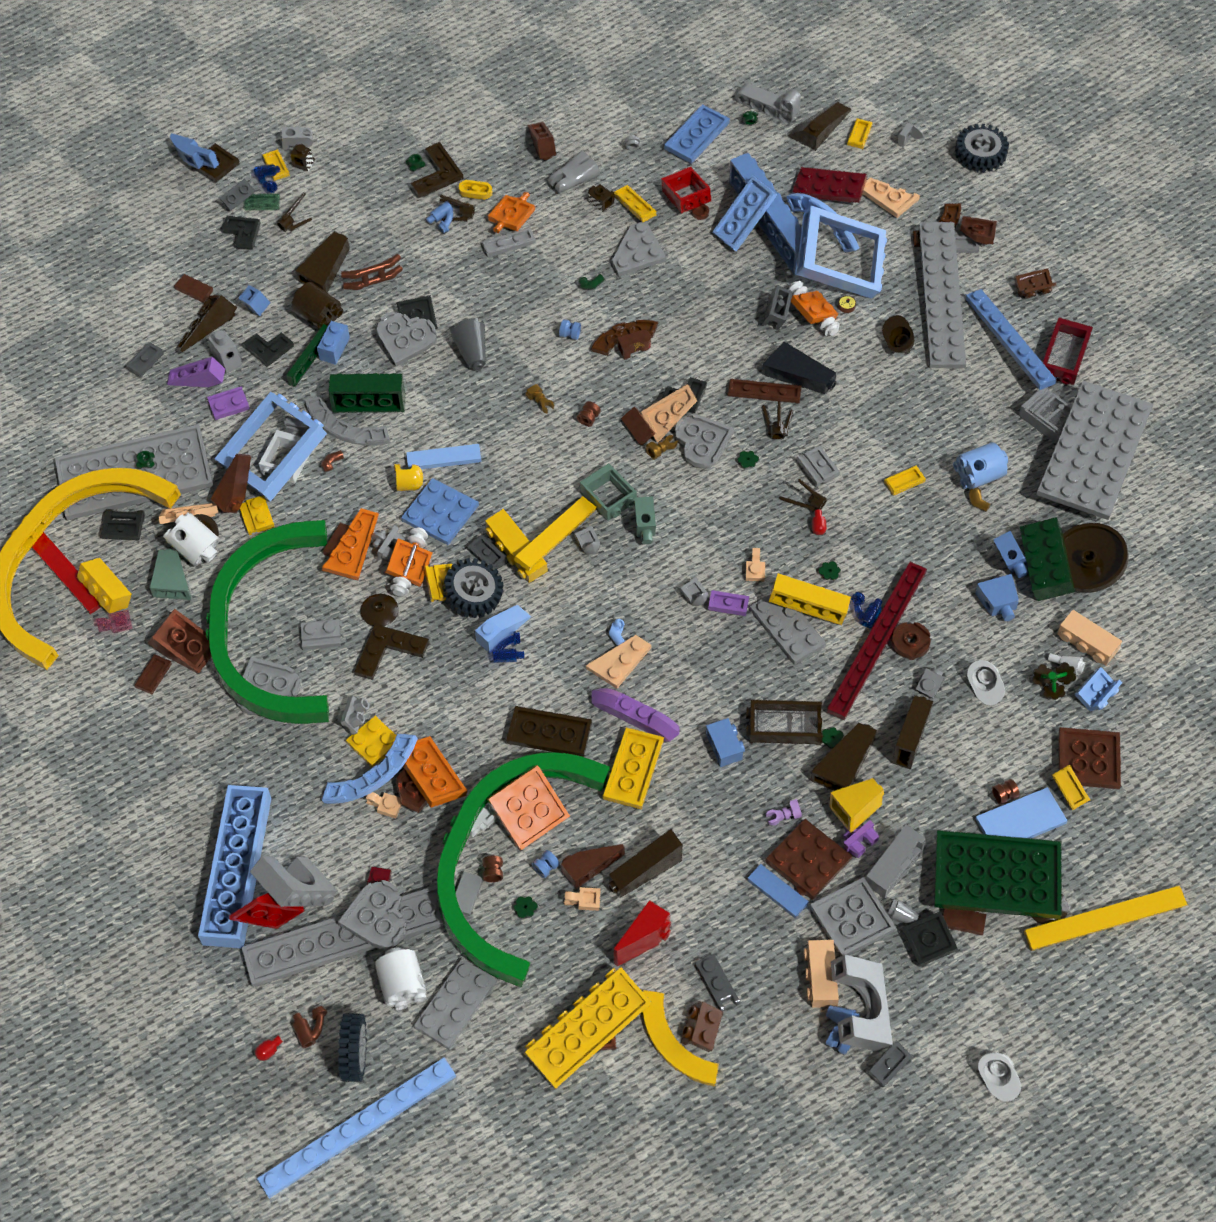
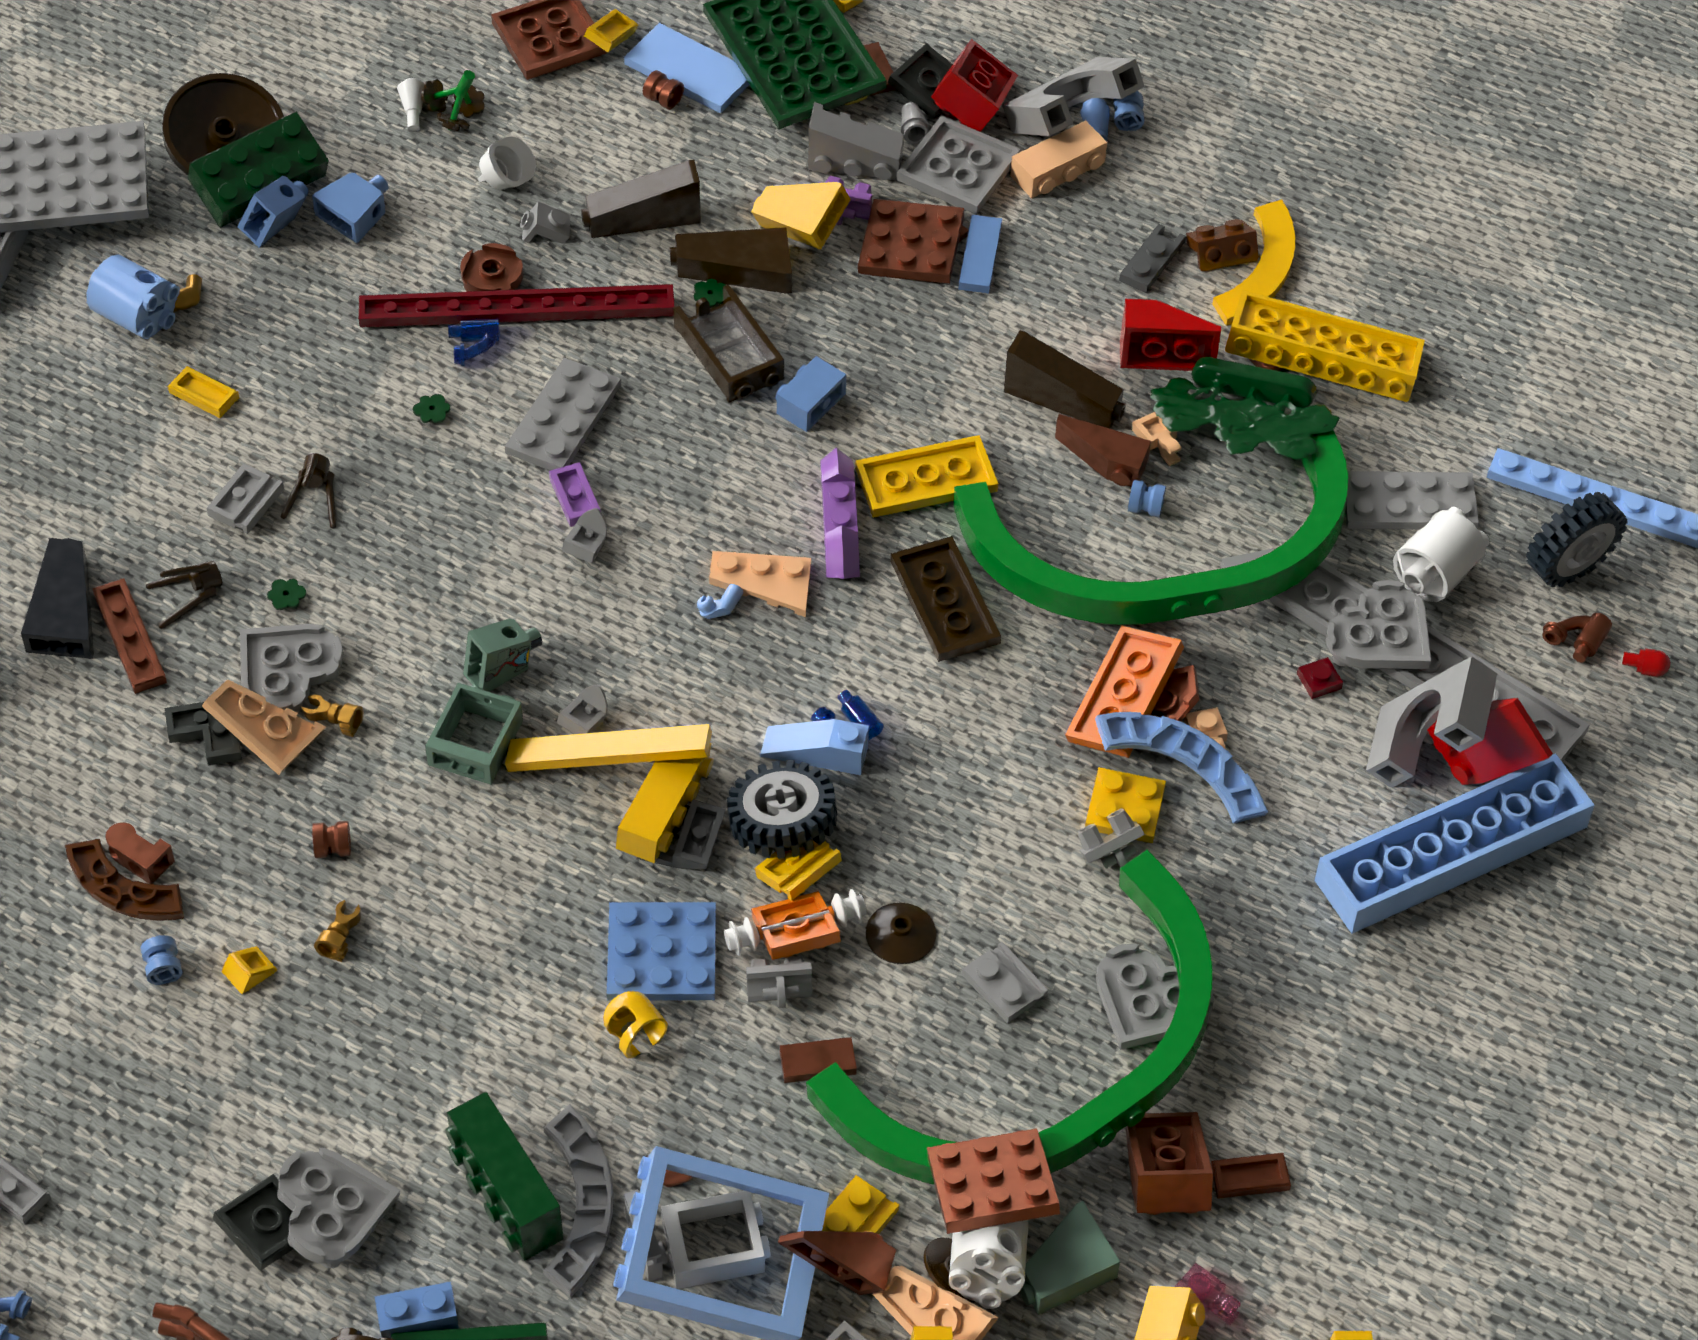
camera: 125 degrees left, 5 degrees down
(213, 548) = (992, 1181): none -> plate
(352, 549) = (824, 1022): orange wing -> none
(384, 638) = (957, 897): dark brown plate -> none
(444, 456) = (550, 1007): light blue tile -> none
(470, 340) = (285, 1087): dark grey cone -> none
(492, 868) = (1202, 551): copper wheel -> none
(522, 902) = (1220, 495): dark green plant -> none
(528, 807) = (1088, 545): orange plate -> none
(546, 361) = (247, 968): none -> yellow slope
(556, 941) = (1251, 420): none -> dark green plant
(591, 284) = (29, 988): dark green arm -> none
(638, 426) = (312, 762): copper tile -> none
(755, 569) = (487, 493): light nougat plate -> none
(794, 811) = (855, 281): lavender piece -> none
(809, 599) = (509, 393): yellow brick -> none
(818, 523) = (354, 453): red cylinder -> none
(889, 1064) = (1114, 51): dark grey plate -> none
(907, 958) = (974, 86): none -> red slope
(1089, 637) = (359, 93): light nougat brick -> none
(1097, 690) = (439, 54): light blue bracket -> none

